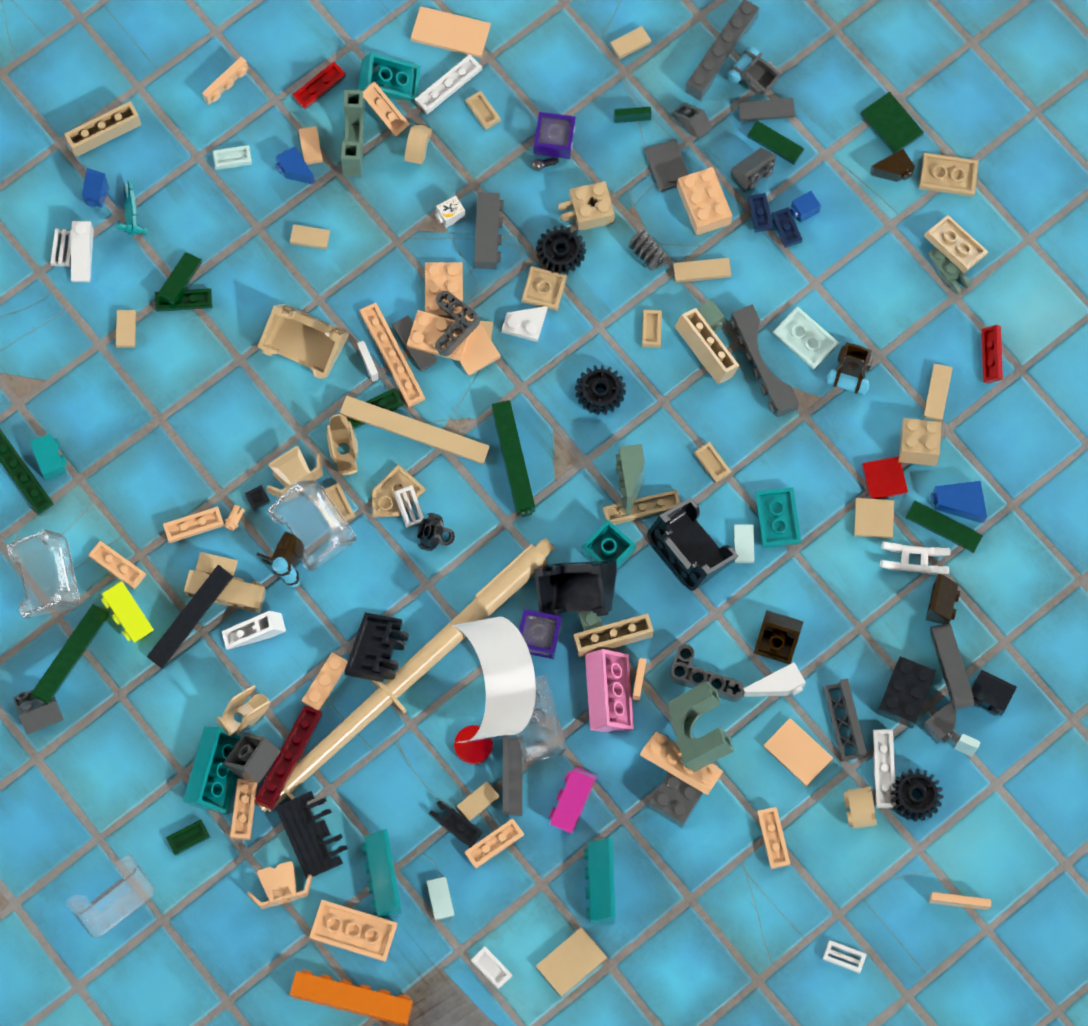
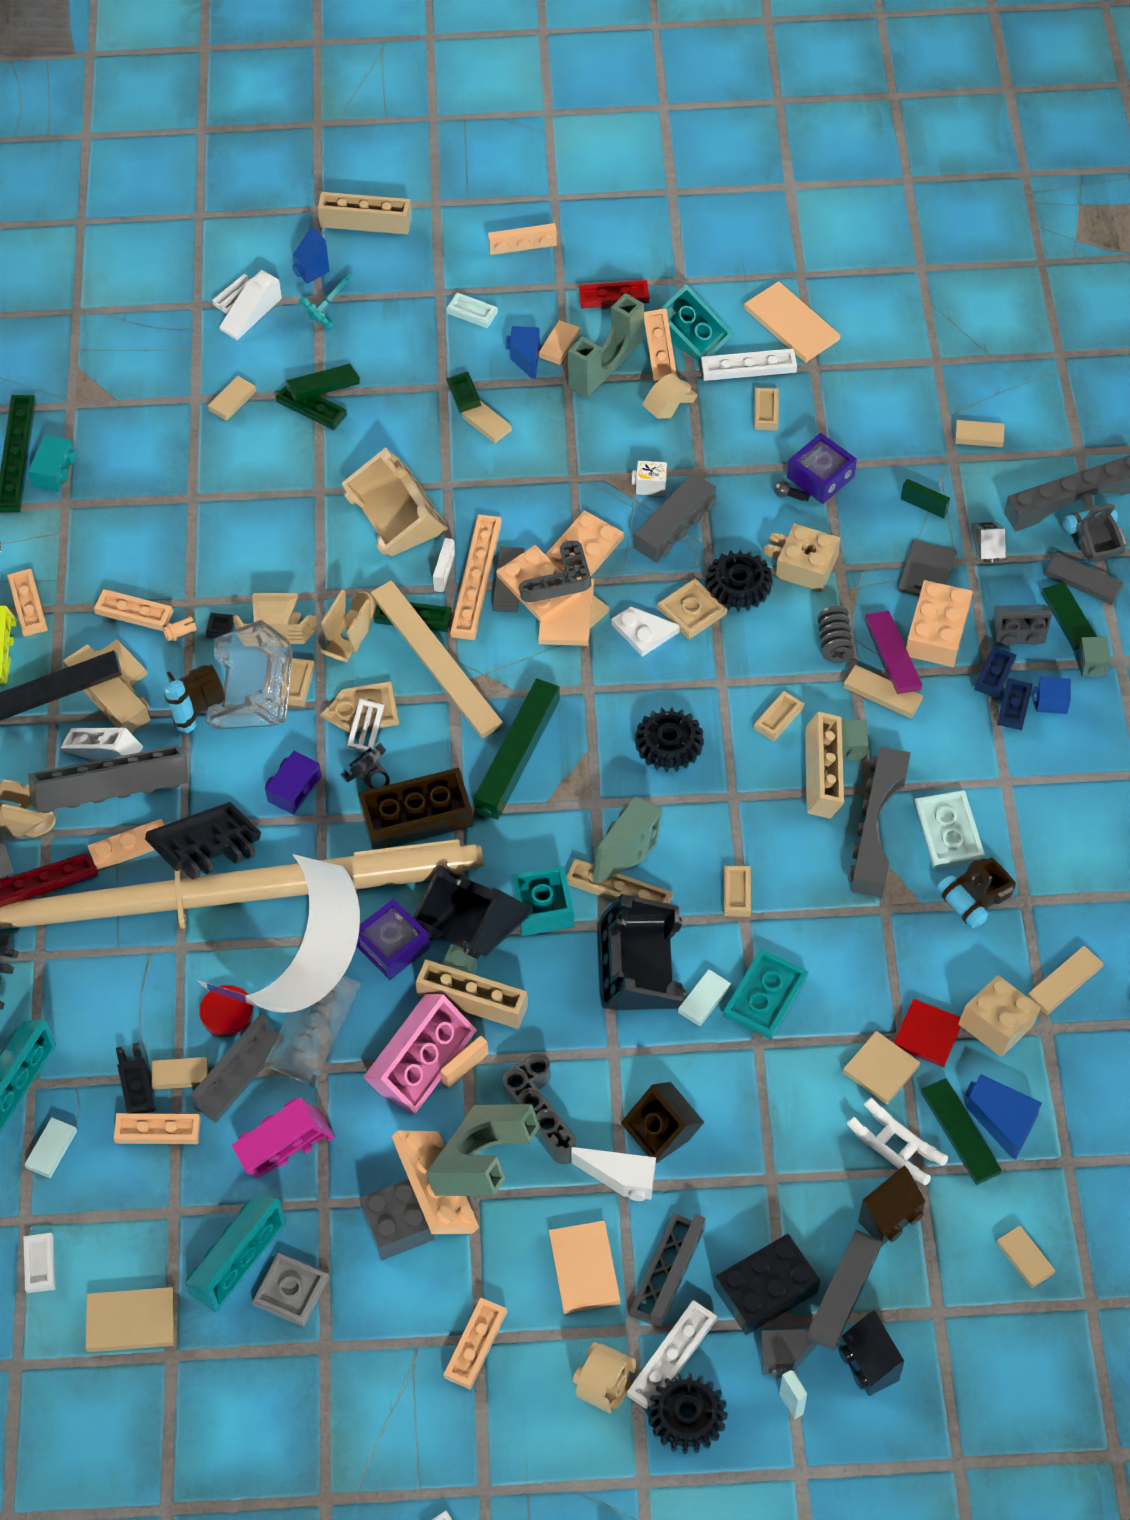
camera: 40 degrees right, 15 degrees down
(278, 225) = (463, 392): none -> dark green tile
(286, 651) = (108, 779): none -> dark grey brick
(394, 573) = (293, 782): none -> dark purple brick
(486, 541) = (415, 809): none -> dark brown brick
(646, 881) = (290, 1289): none -> light grey tile
(690, 239) = (893, 652): none -> magenta tile
(811, 163) = (1094, 656): none -> sand green brick
(1029, 577) = (1025, 1257): none -> tan tile

